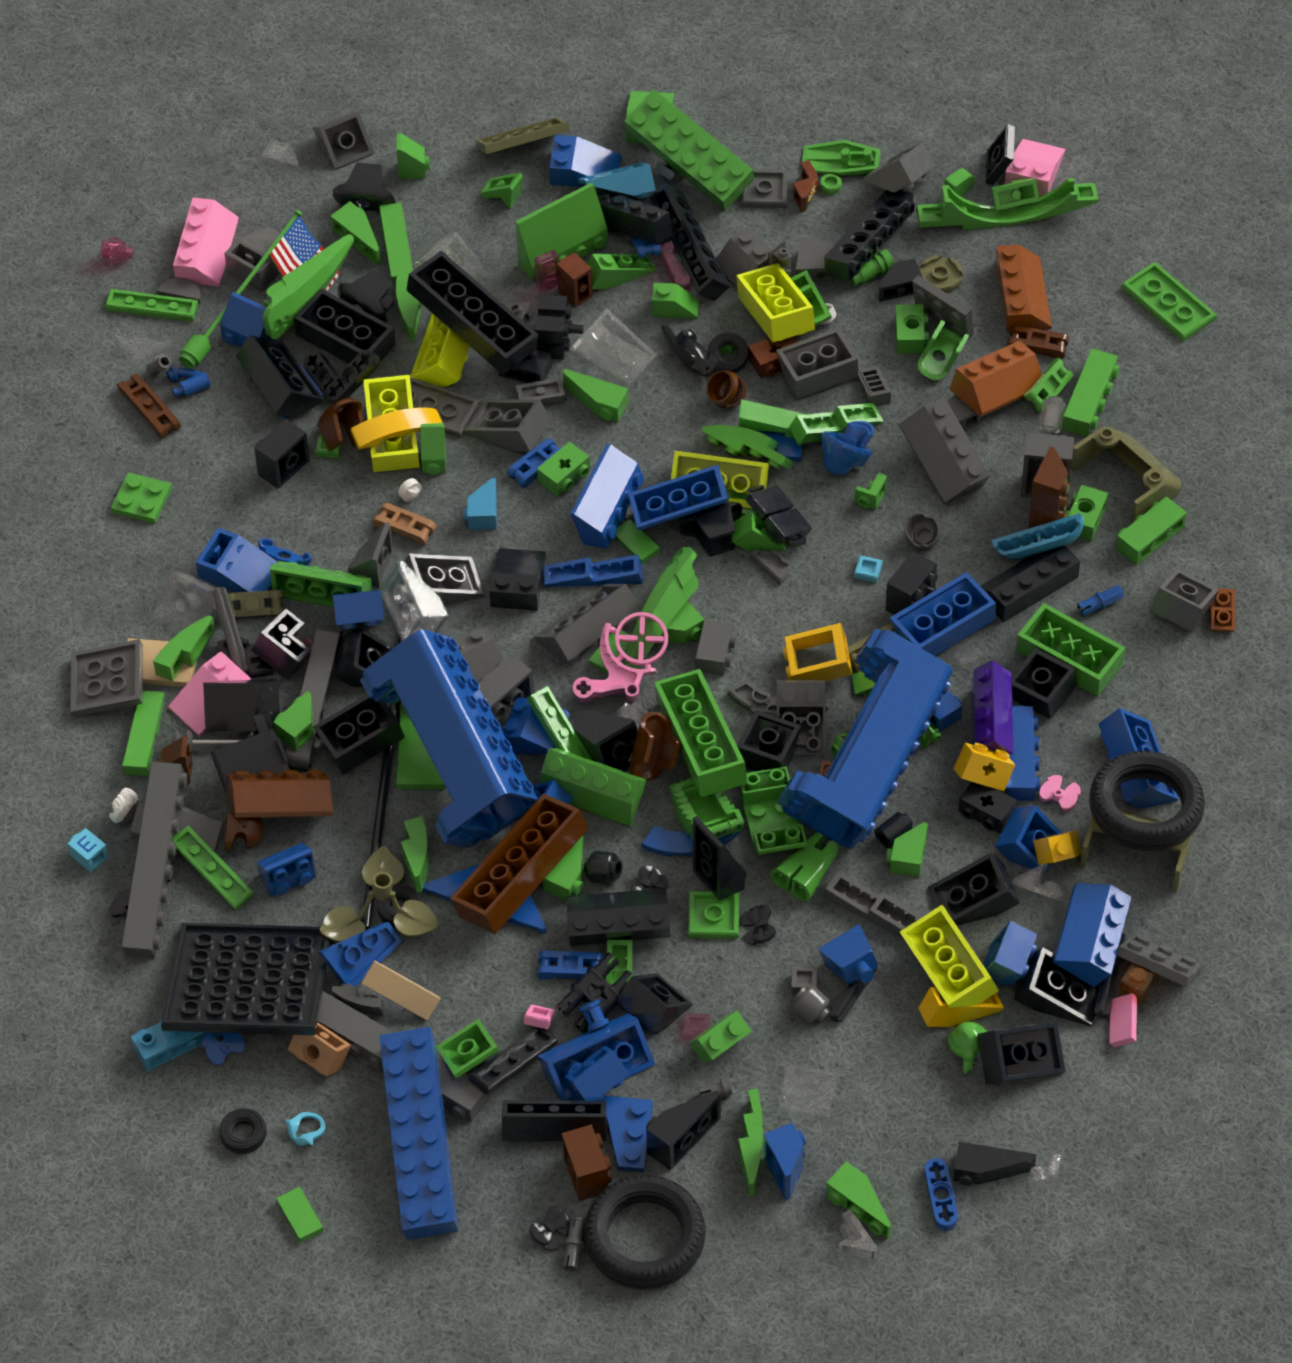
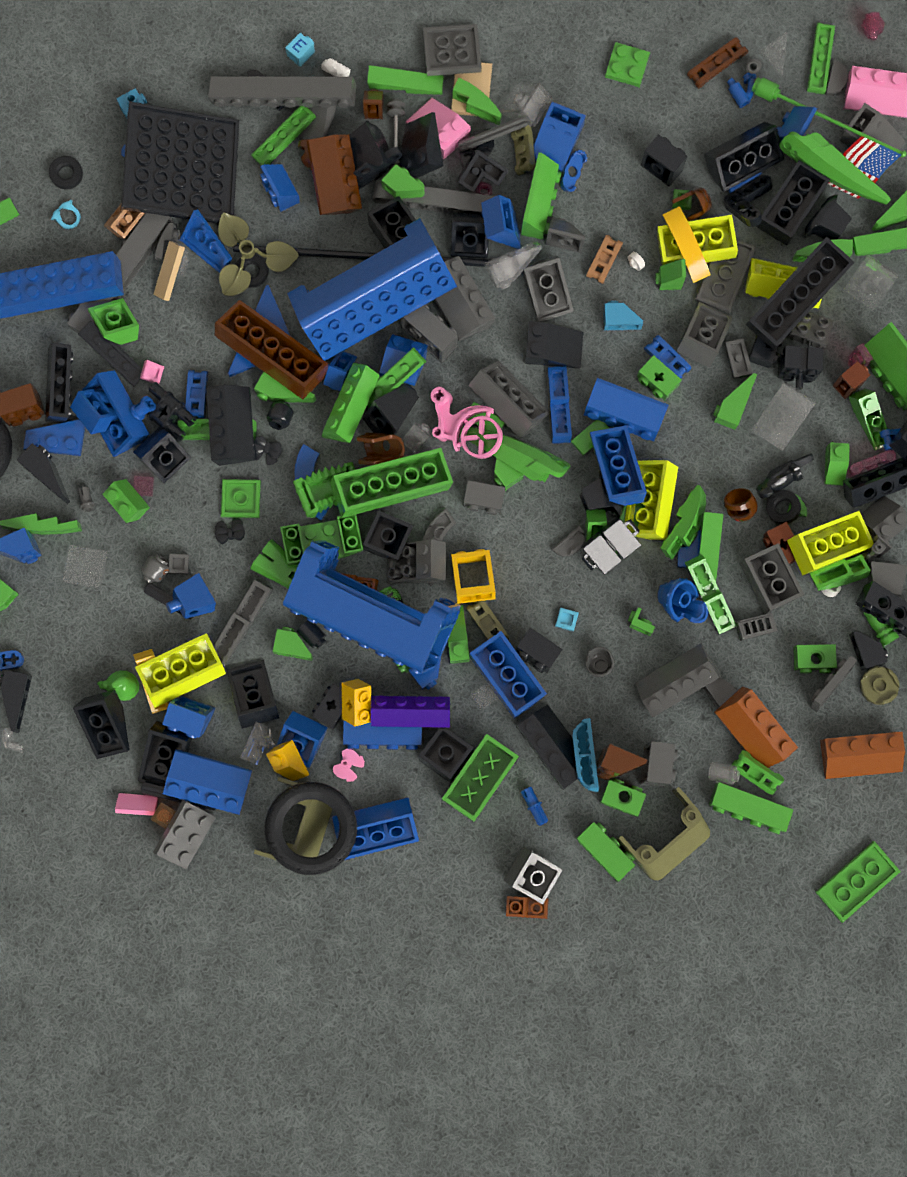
camera: 85 degrees right, 25 degrees up
(416, 851) = (291, 278): bright green slope -> none
(715, 864) = (273, 496): black slope -> none
(948, 344) = (802, 690): bright green piece -> none
(1039, 340) = (807, 766): reddish brown plate -> none

